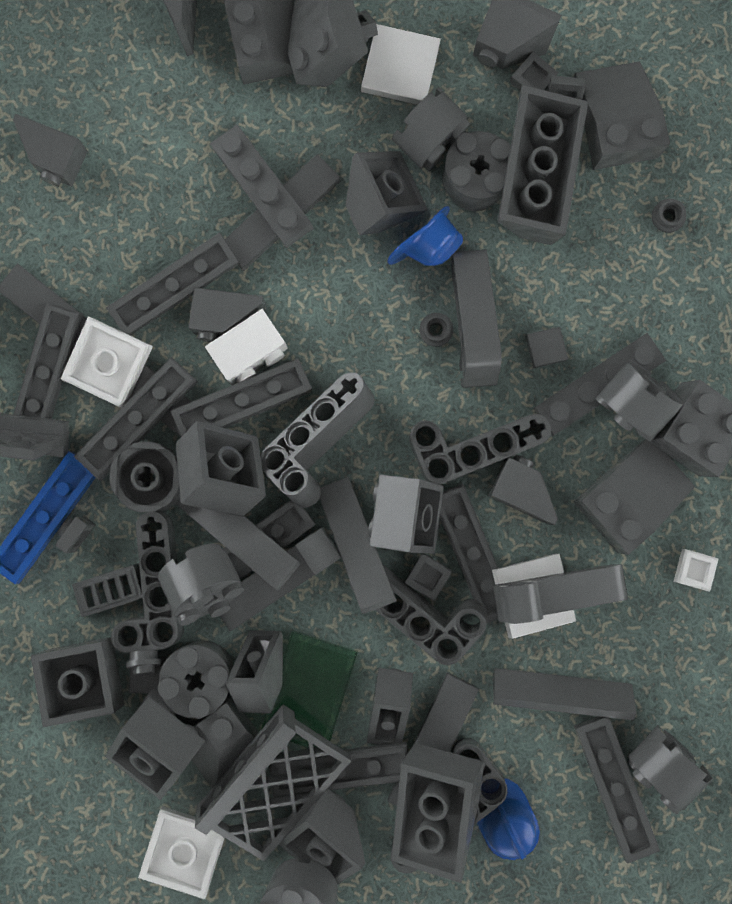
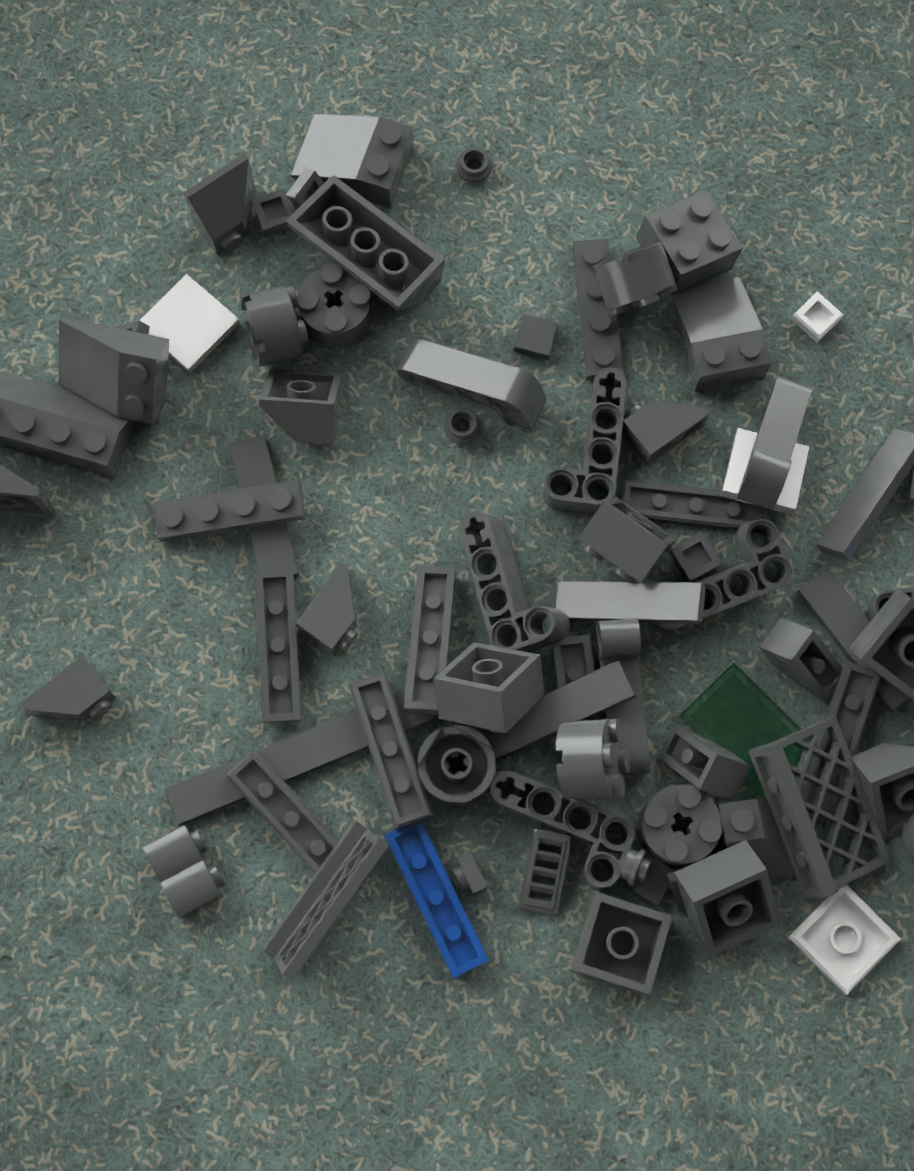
camera: 60 degrees left, 10 degrees down
(106, 362) = (317, 750): white tile -> none
(247, 348) = (380, 608): white brick -> none
(431, 243) = (383, 380): blue piece -> none

